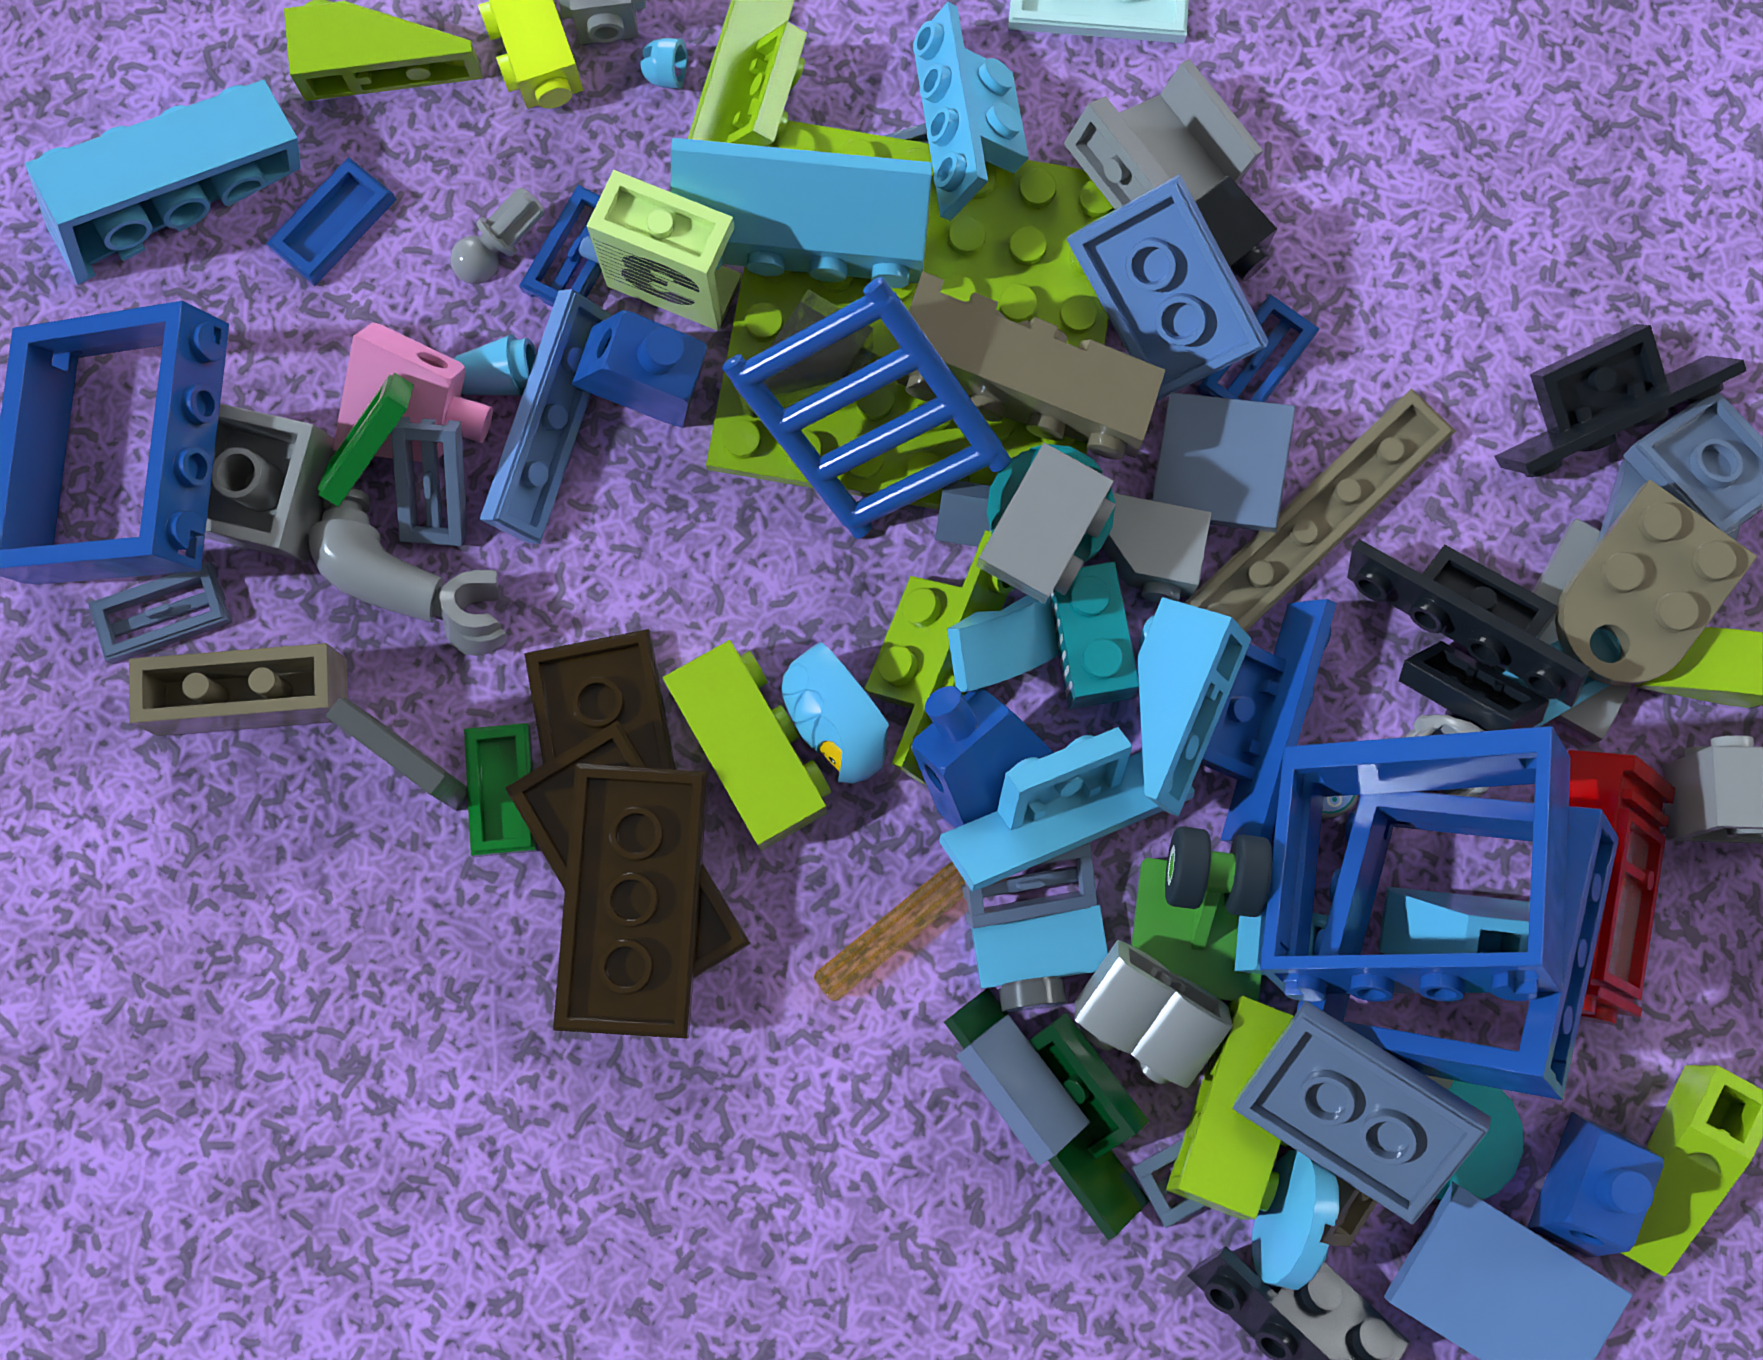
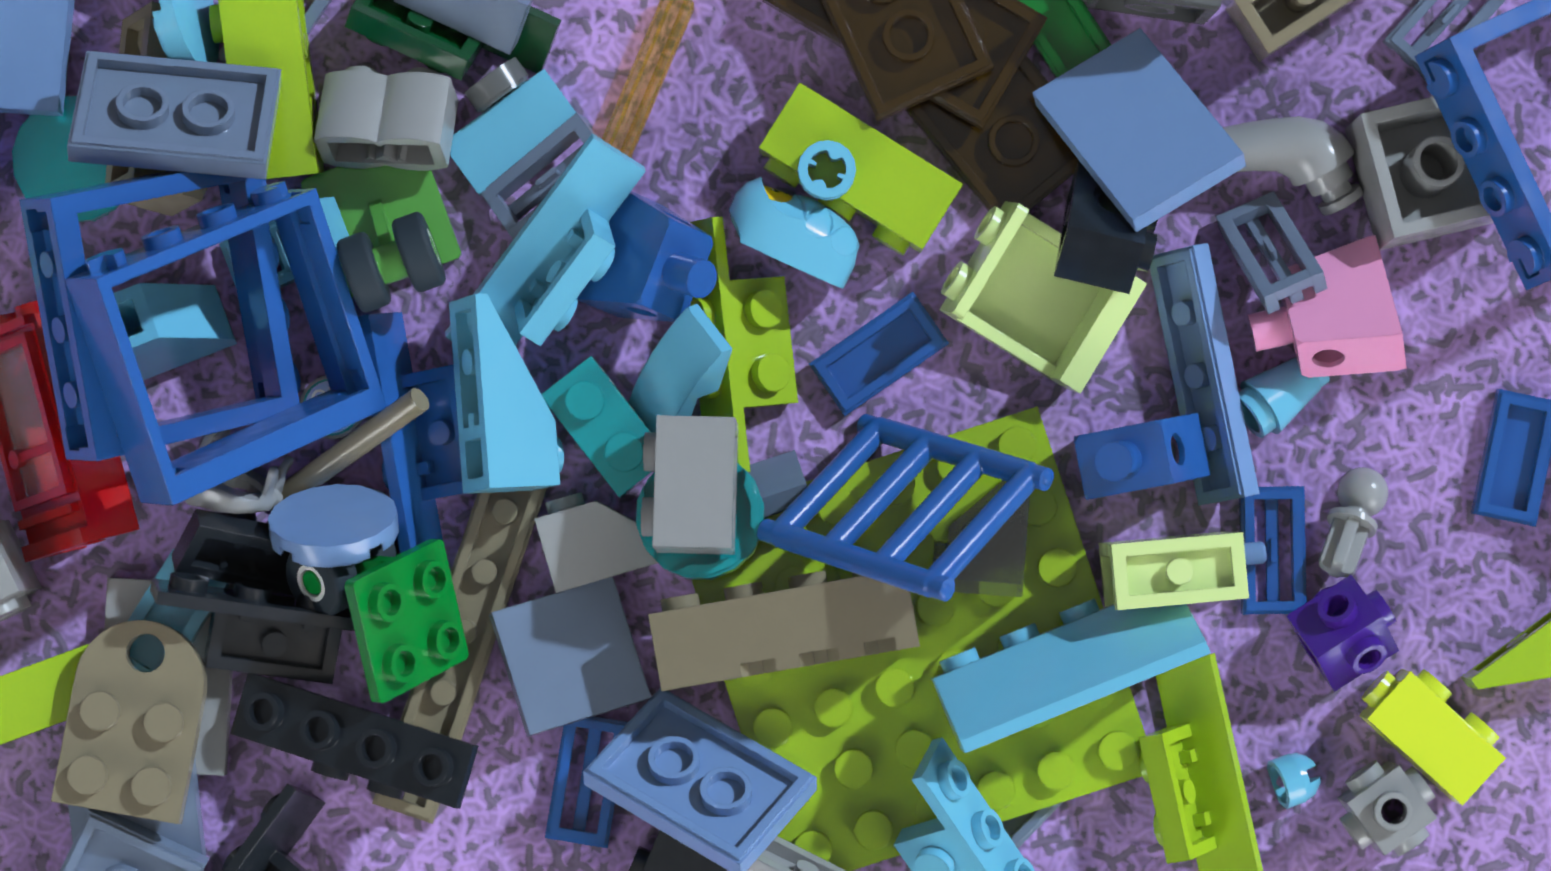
camera: 155 degrees right, 10 degrees up
(365, 438) = (1340, 251): green tile -> none
(479, 637) = (1139, 129): none -> medium blue tile
(552, 146) = (1345, 631): none -> dark purple brick
(555, 575) = (1097, 240): none -> black brick
(649, 549) = (1027, 311): none -> yellowish green panel
(759, 759) = (835, 153): none -> medium azure bush
(817, 582) = (878, 353): none -> blue tile
(1321, 731) = (358, 442): none -> dark tan bar
(1364, 563) = (399, 611): none -> green plate
(1385, 667) = (333, 525): none -> medium blue tile
(1456, 471) = (354, 741): none -> black bracket

